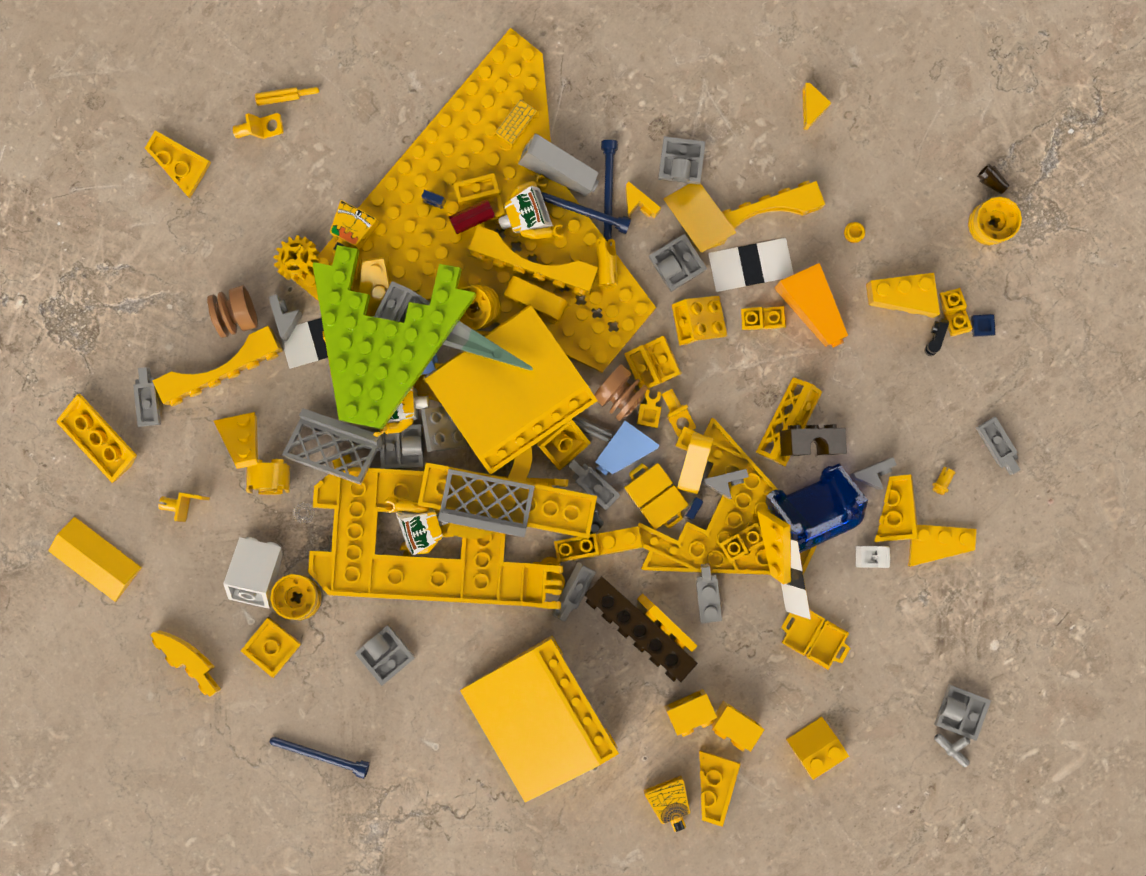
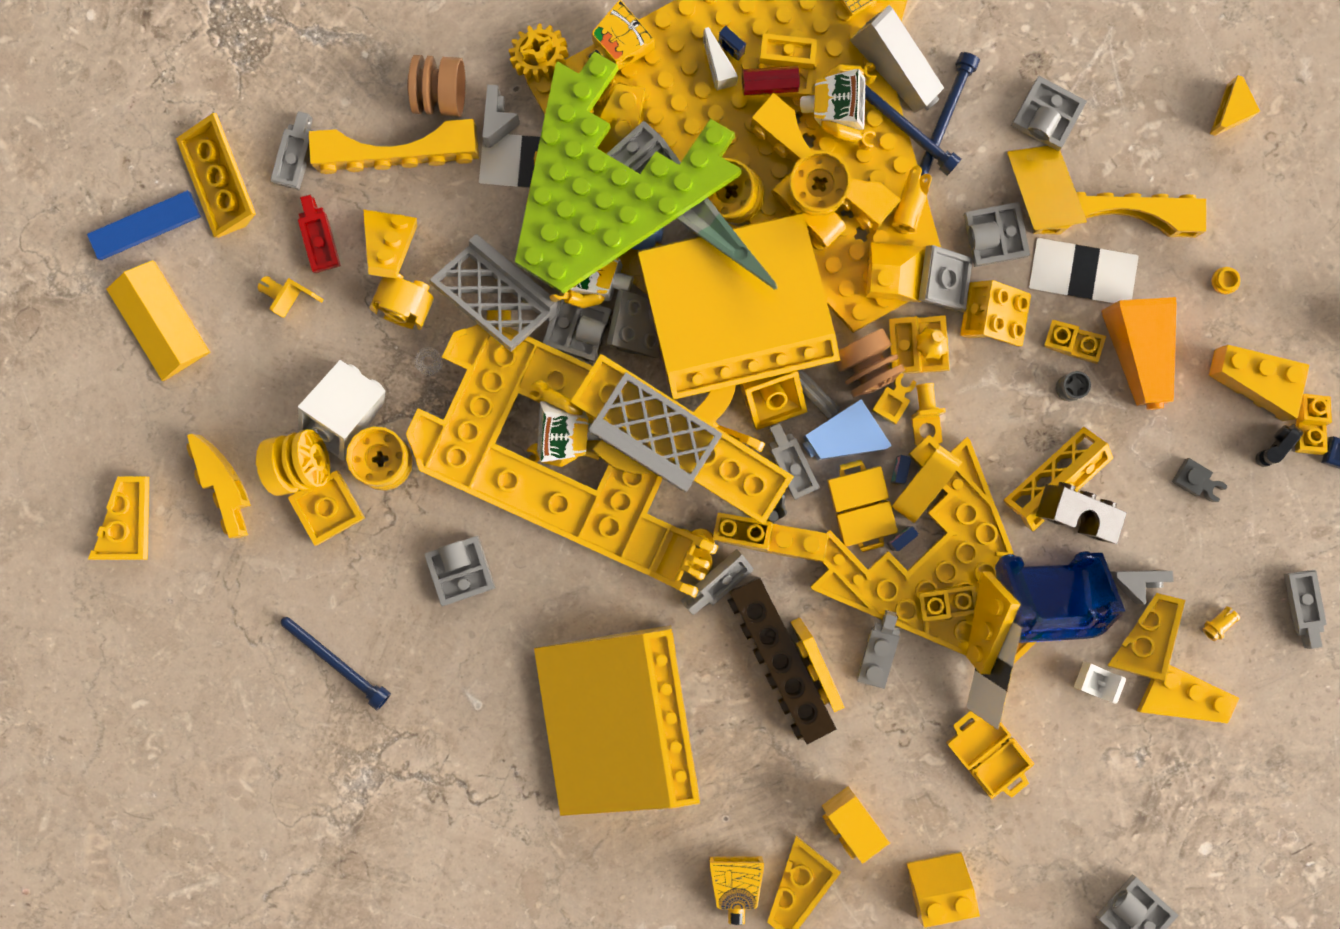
camera: 20 degrees right, 0 degrees up
(57, 494) = (144, 225): none -> blue tile
(130, 716) = (126, 522): none -> yellow wing
(187, 453) = (317, 236): none -> red hinge
(235, 624) = (293, 462): none -> yellow wheel
(433, 221) = (721, 68): none -> white slope
(522, 283) = (823, 167): none -> yellow wheel
(615, 318) = (894, 271): none -> yellow slope
(636, 198) = (977, 137): yellow slope -> none
(652, 309) = (945, 278): none -> light grey tile
(660, 360) = (932, 343): none -> yellow piece
(673, 459) = (901, 470): none -> dark blue tile
(691, 712) = (805, 786): yellow brick -> none
(720, 482) = (948, 521): light grey slope -> none
(775, 348) = (1079, 385): none -> dark grey wheel
(886, 384) = (1196, 479): none -> dark grey plate

